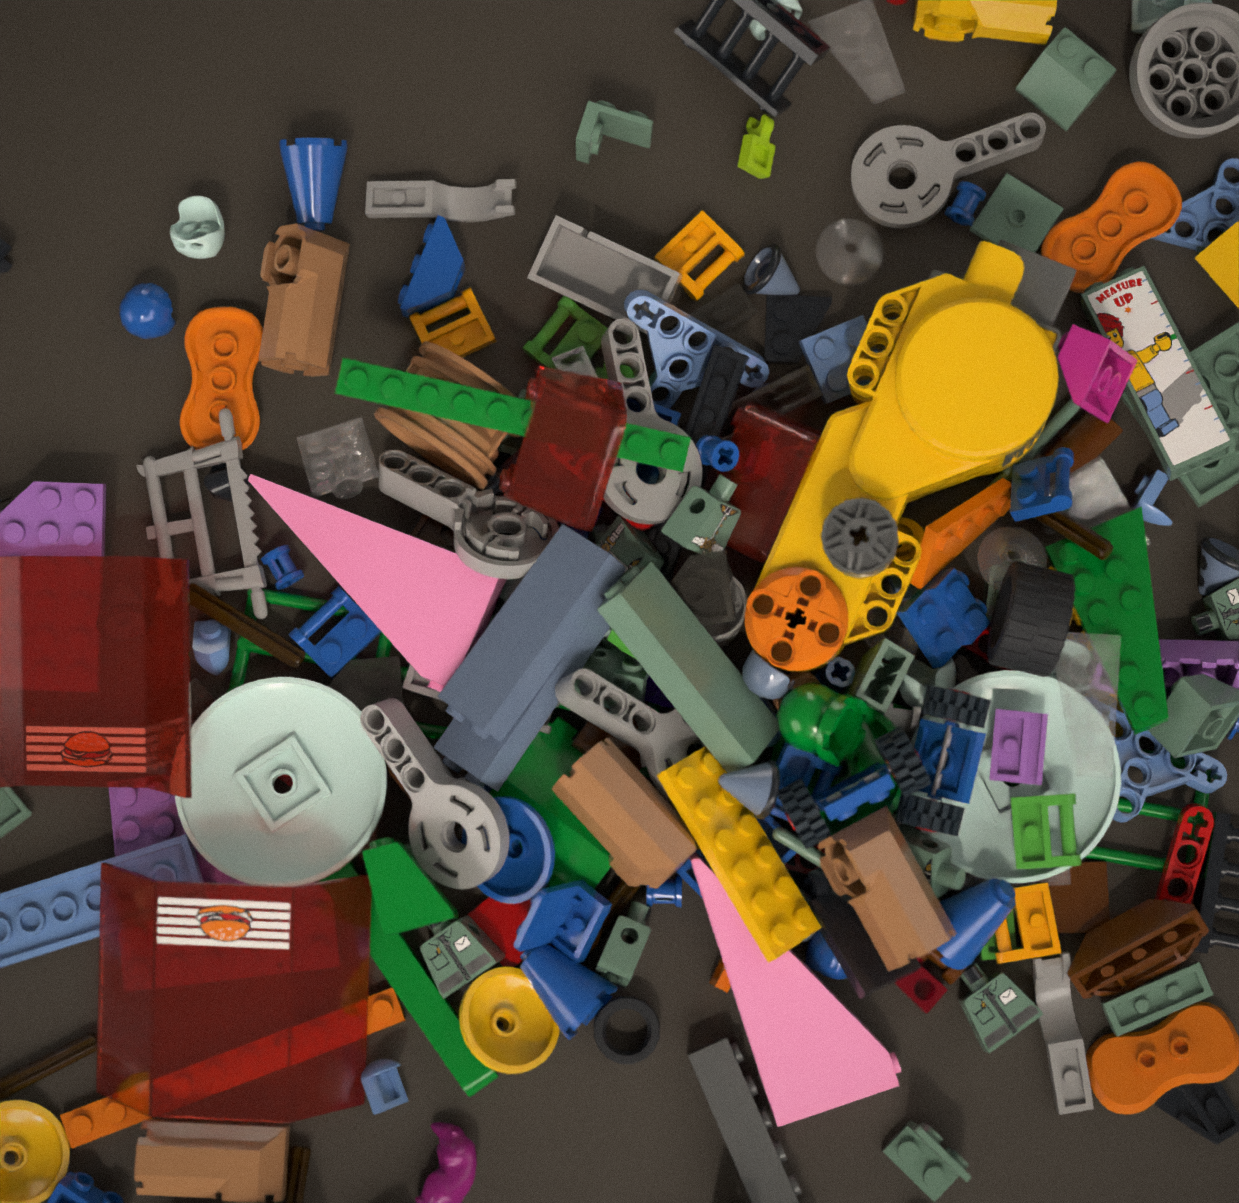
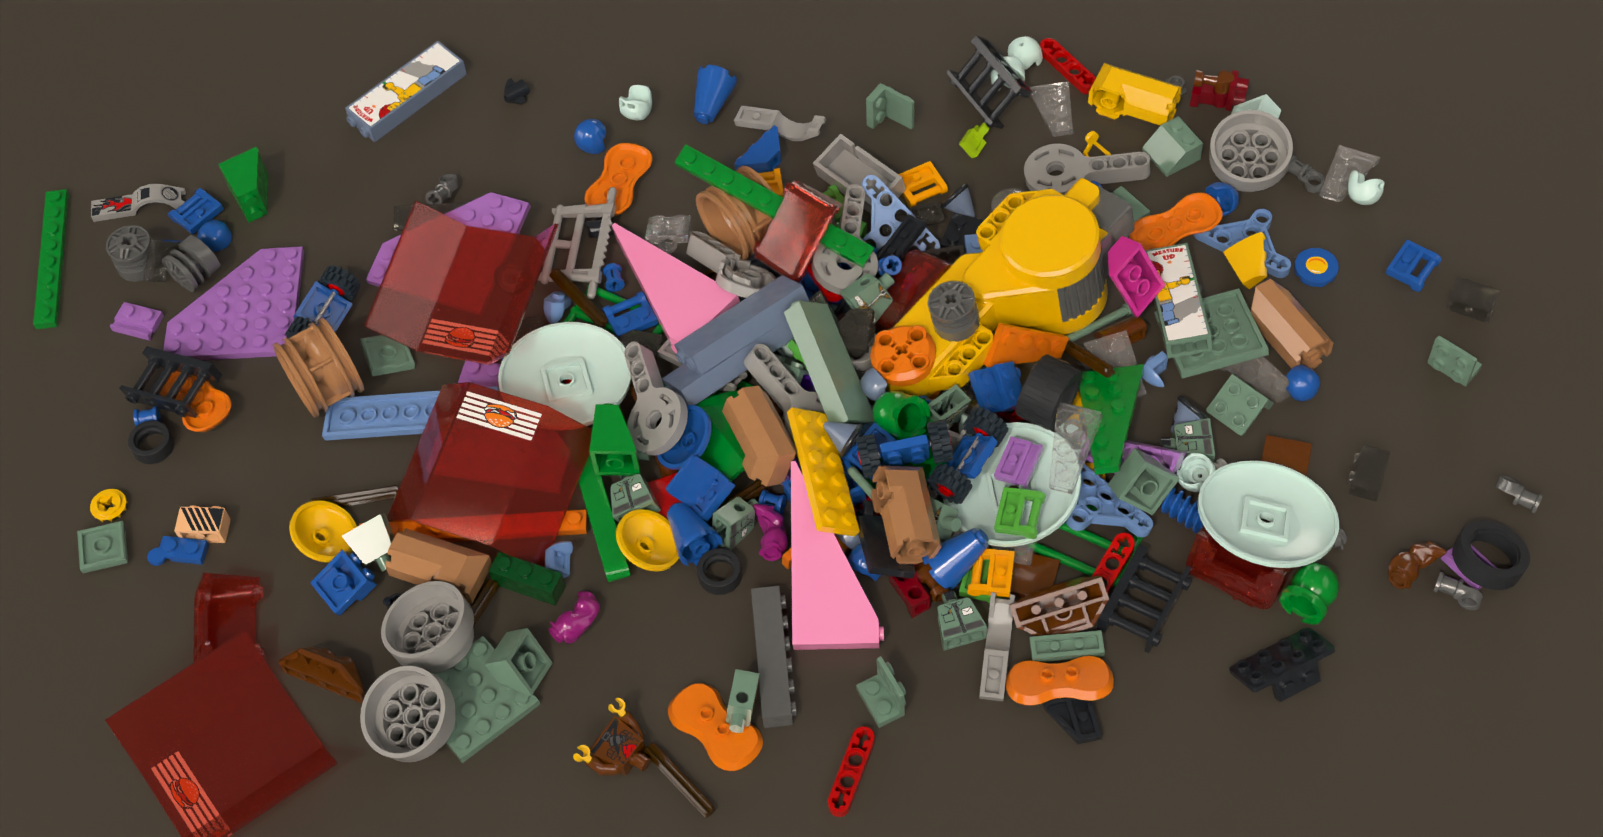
camera: 25 degrees right, 25 degrees down
(96, 1148) = (372, 541): none -> torso
(303, 300) = (686, 128): medium nougat brick -> none
(352, 1134) = (527, 578): none -> dark green brick
(690, 953) = (775, 536): none -> magenta animal
(942, 102) = (1091, 138): none -> yellow piece
(1032, 483) = (1083, 336): blue plate -> none
(1170, 155) = (1225, 196): none -> blue hair

